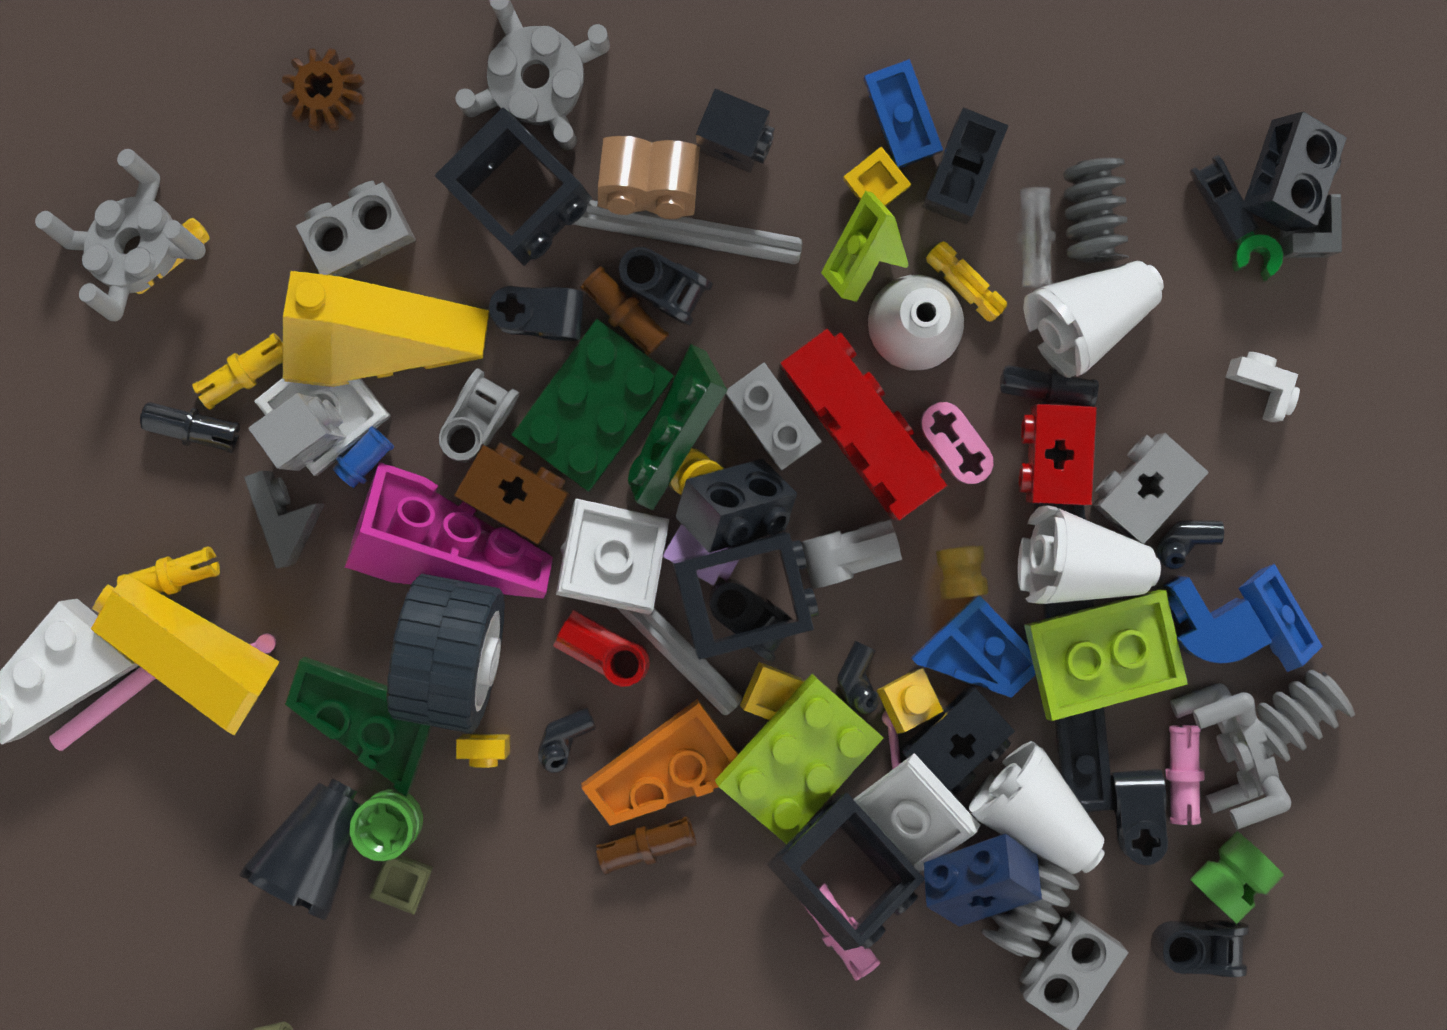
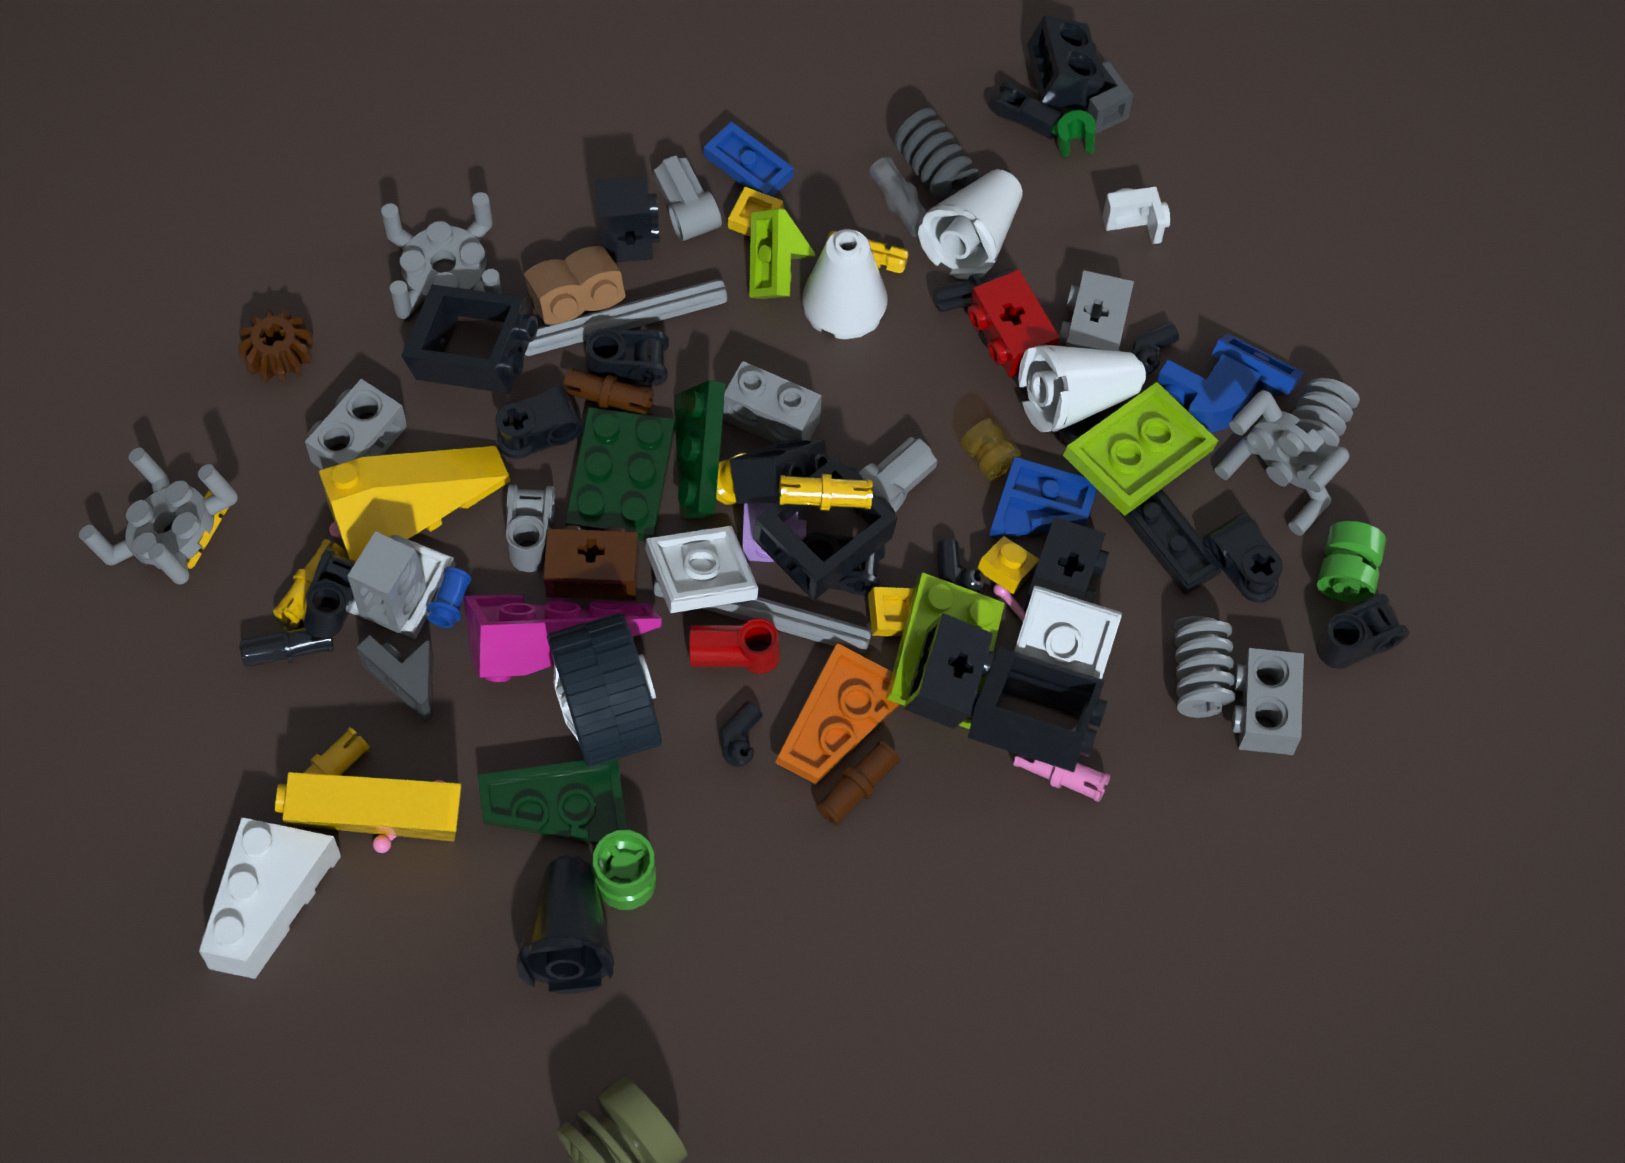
camera: 30 degrees left, 25 degrees down
(101, 708) = (323, 901): bright pink bar -> none
(250, 401) = (332, 590): none -> black piece
(401, 883) = (662, 925): olive tile -> none
(483, 749) = (675, 771): yellow plate -> none
(753, 576) = (825, 492): none -> yellow pin
(785, 779) = (949, 671): none -> black brick
(815, 140) = (689, 207): none -> light grey piece
(863, 425) = (856, 379): red wedge -> none
(965, 166) = (817, 168): black brick -> none
(965, 435) = (929, 365): bright pink beam -> none
(982, 880) = (1150, 653): dark blue brick -> none
(1039, 811) = (1165, 584): white cone -> none
(1184, 775) = (1261, 512): bright pink pin -> none

